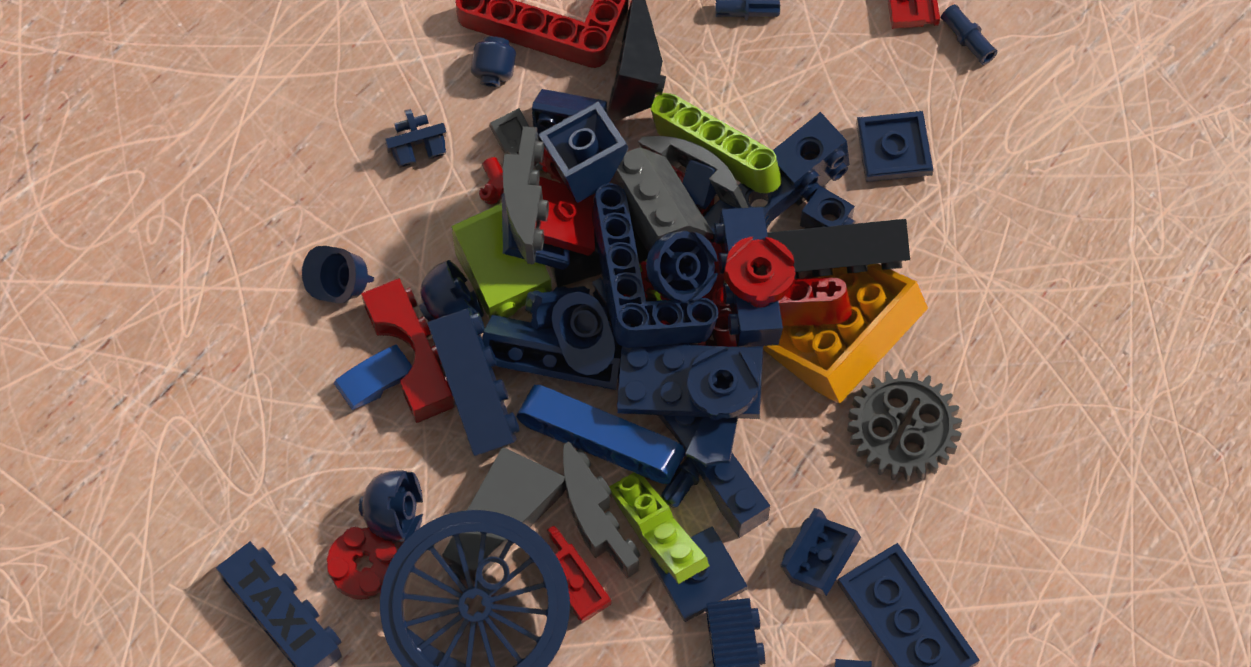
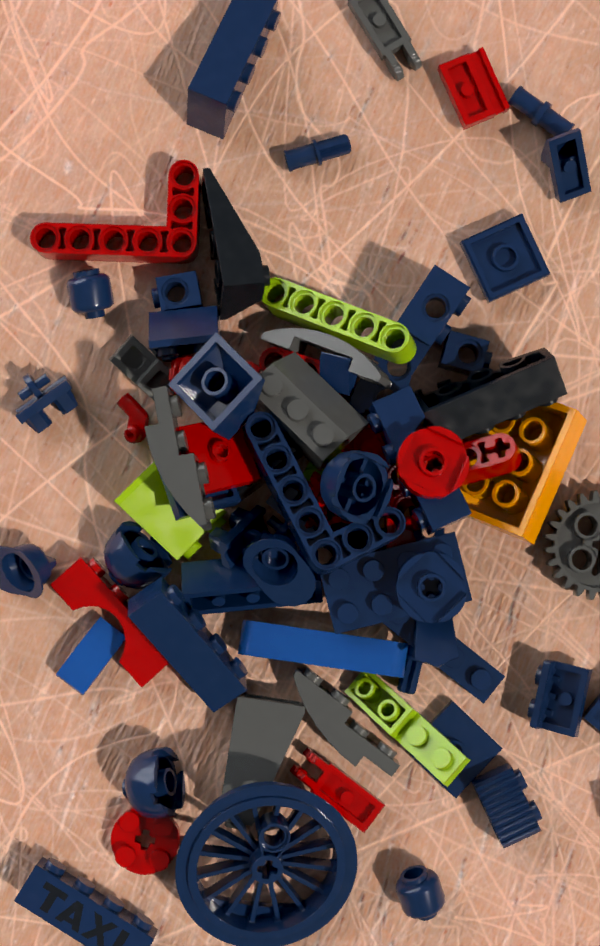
camera: 20 degrees left, 20 degrees up
(570, 73) = (188, 281): none -> dark blue brick
(978, 80) = (567, 165): none -> dark blue slope

